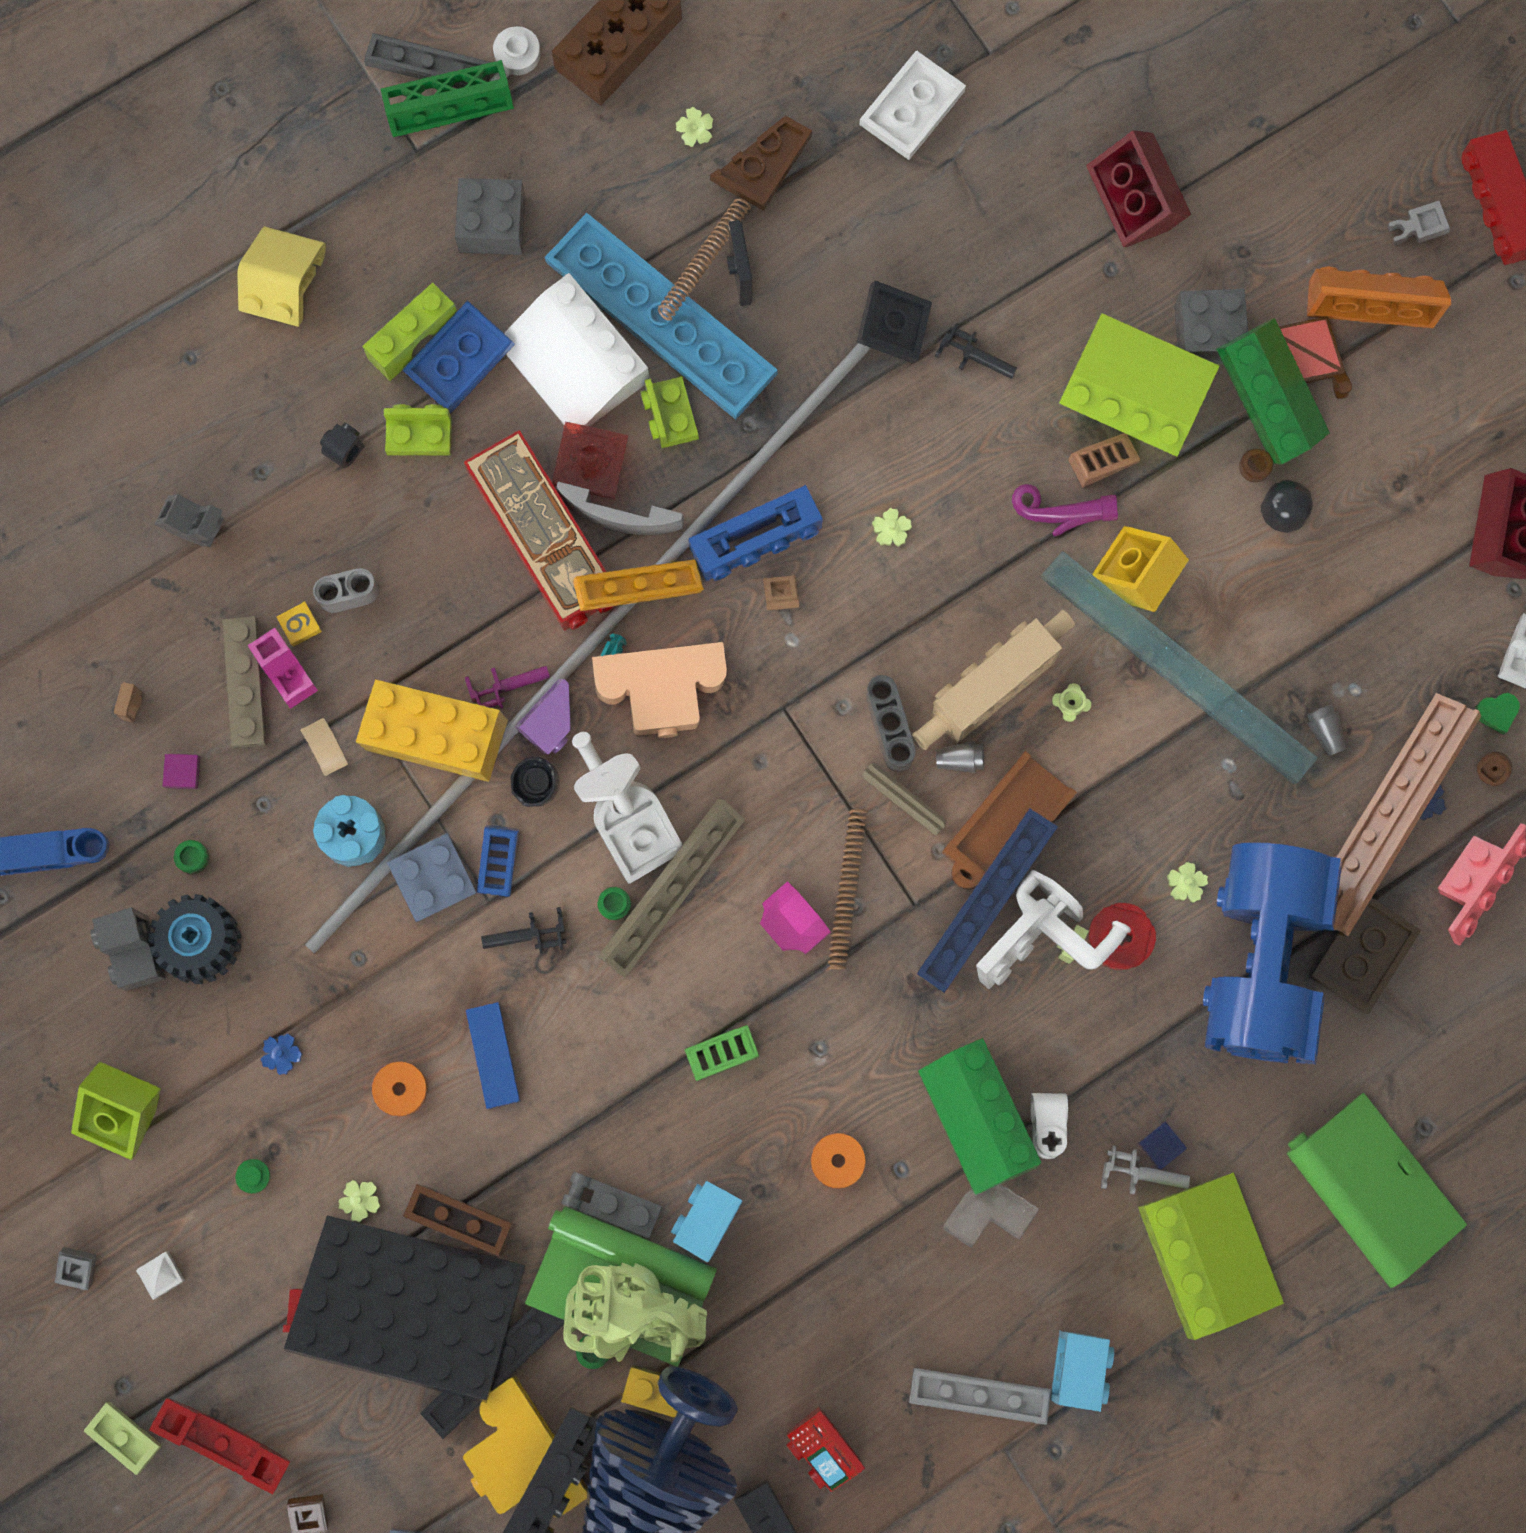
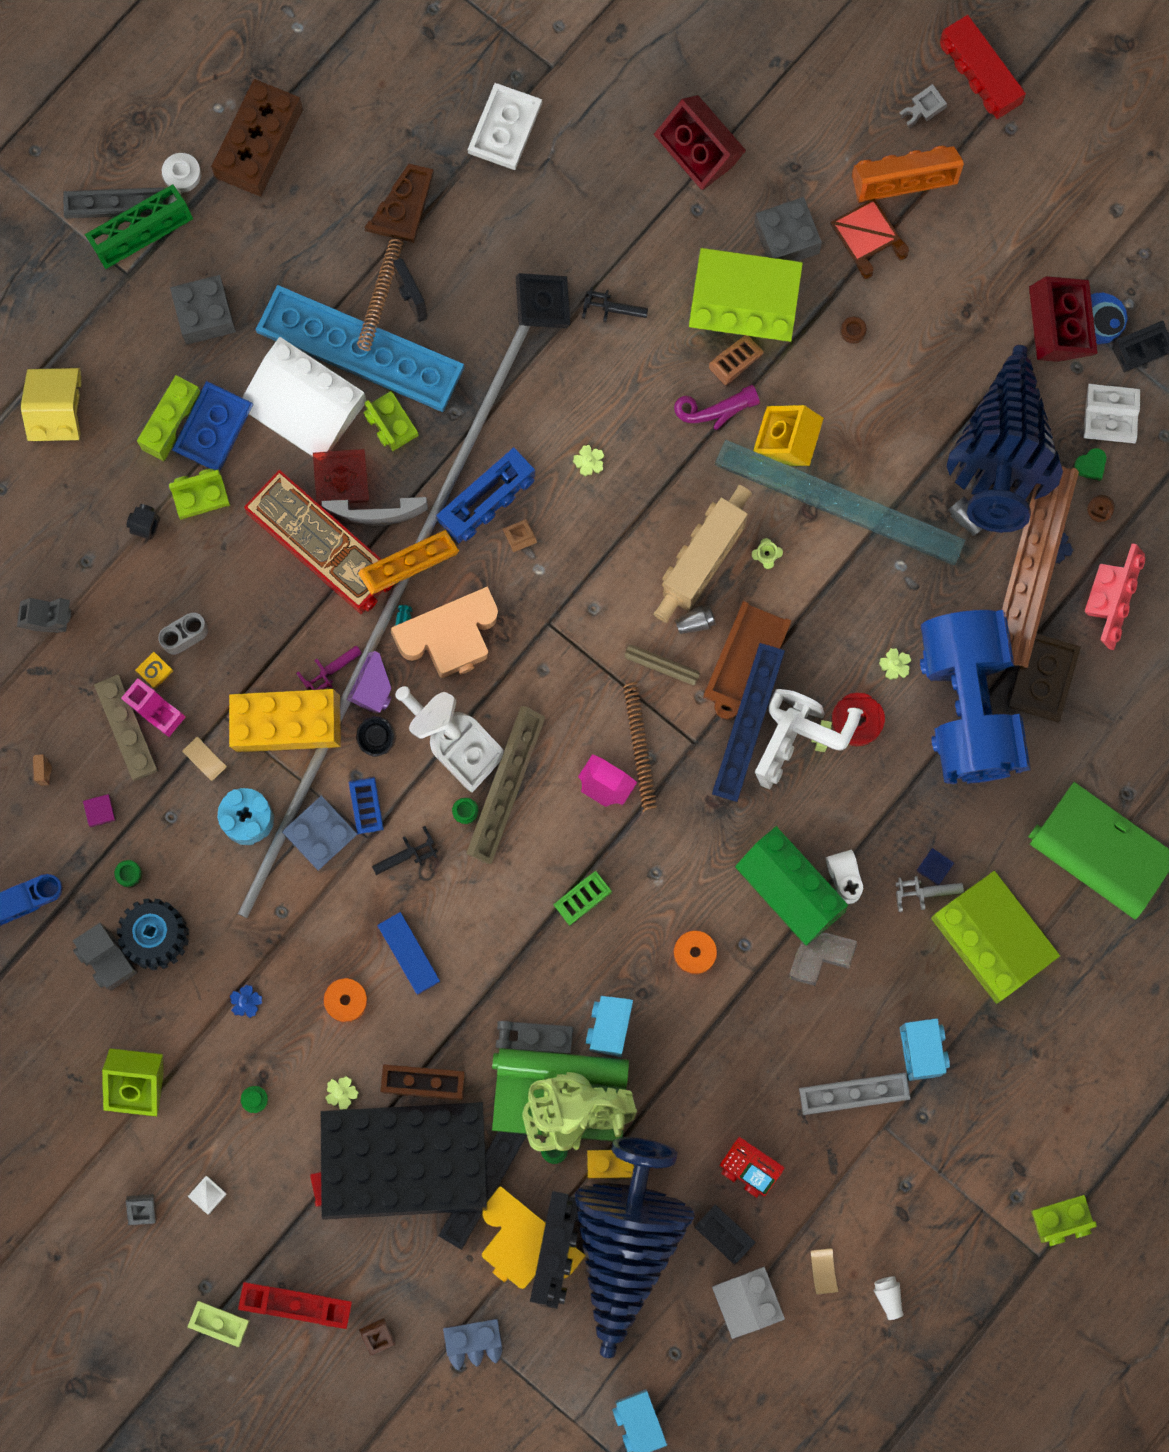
camera: 15 degrees left, 0 degrees up
(695, 127) = (341, 193): yellowish green plant -> none
(893, 708) = (633, 598): dark grey beam -> none
(1273, 392) = (850, 270): green slope -> none
(1287, 506) = (886, 354): black hair -> none
(1403, 661) = (1005, 446): none -> dark blue plant

